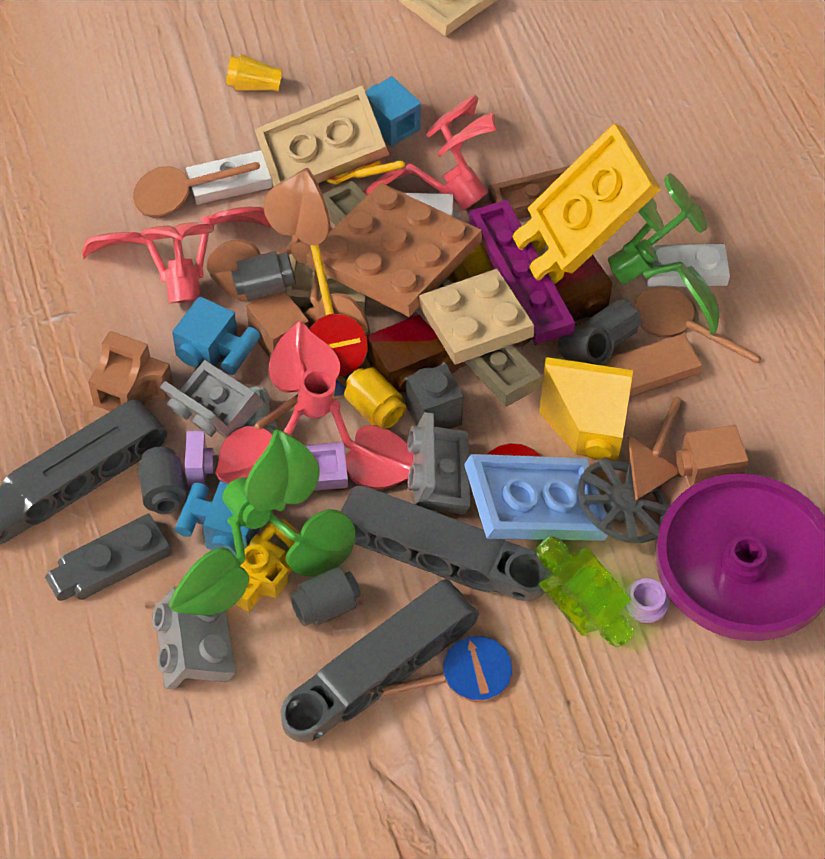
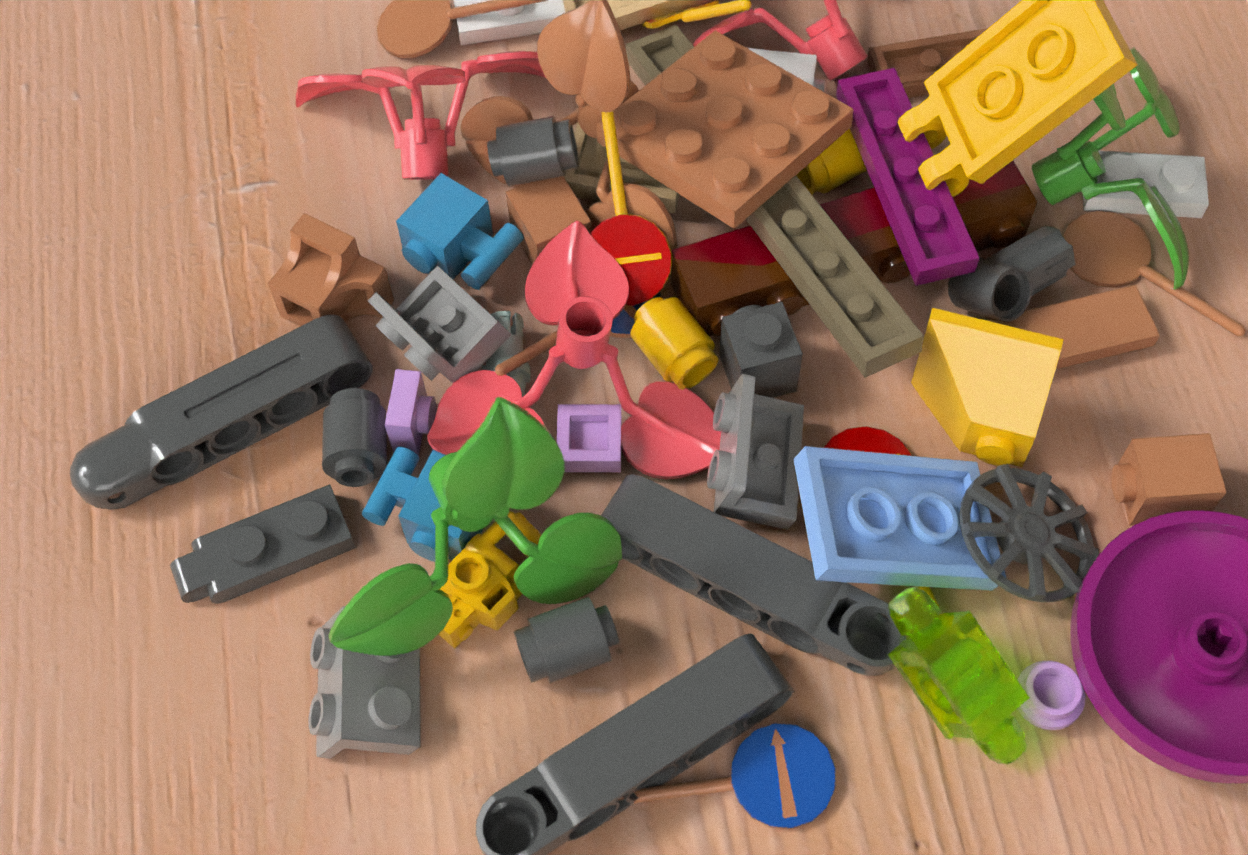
camera: 10 degrees right, 5 degrees up
(476, 316) = (833, 237): tan plate -> none
(647, 466) = (1067, 481): nougat piece -> none

